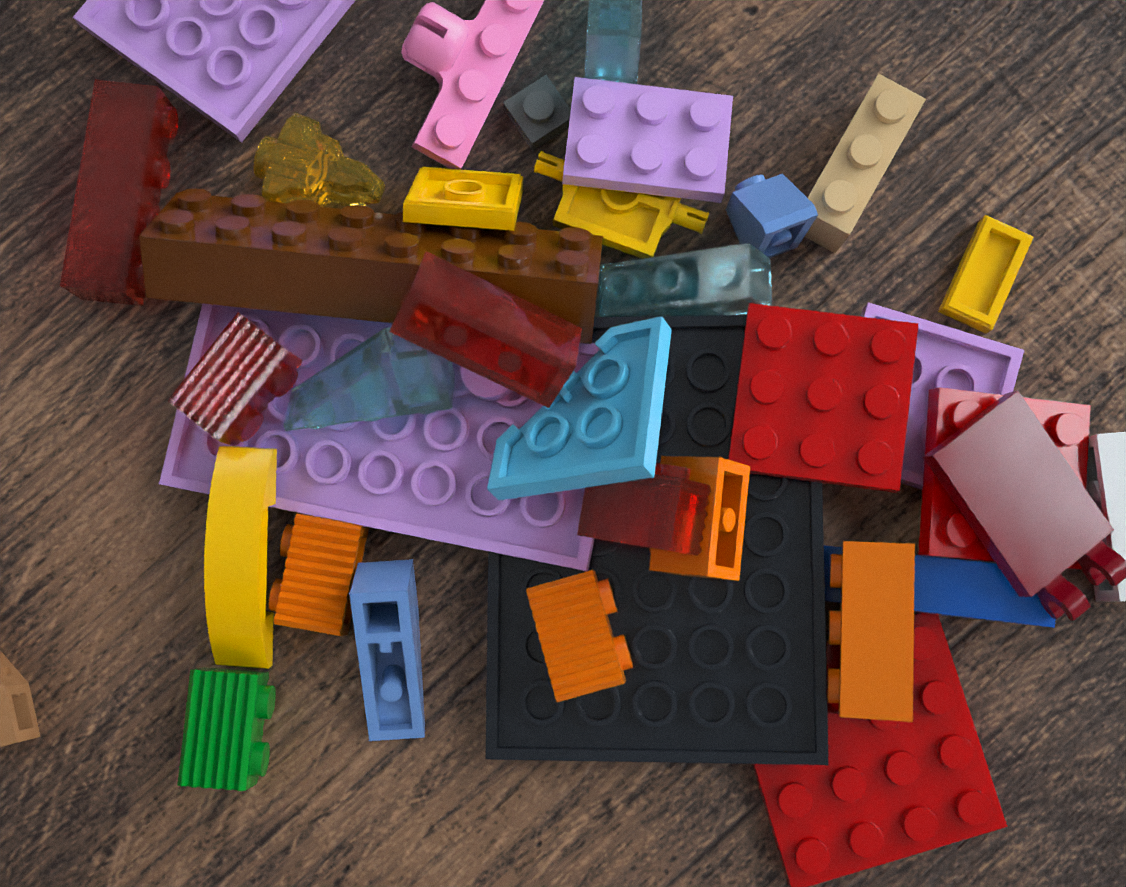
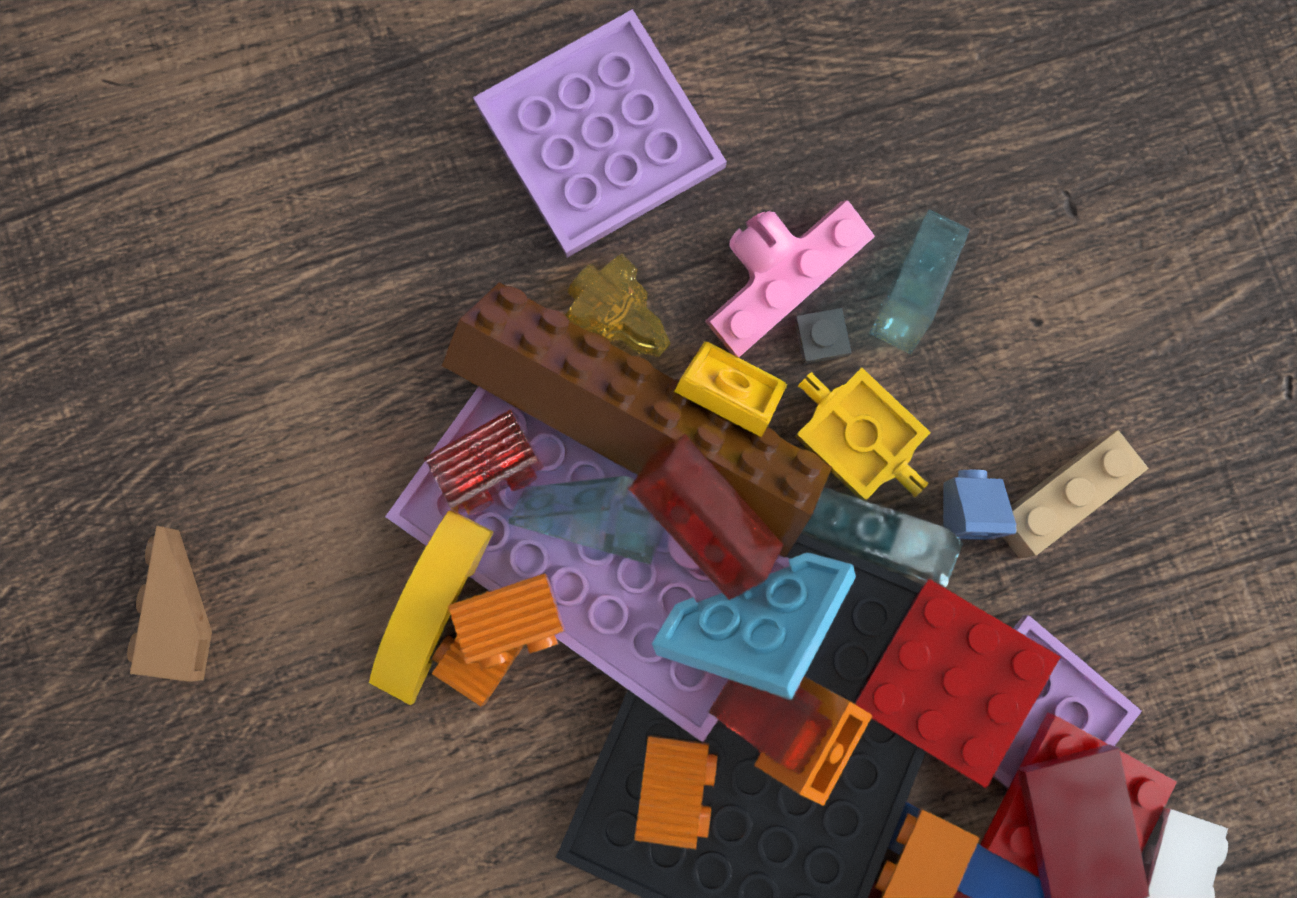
camera: 15 degrees right, 0 degrees up
(118, 191) = (451, 261): clear red brick -> none
(225, 729) = (356, 740): green brick -> none
(326, 532) = (507, 620): none -> orange brick
(389, 648) = (515, 732): medium blue slope -> none
(648, 140) = (903, 402): lavender plate -> none
(985, 274) = (1138, 631): yellow tile -> none

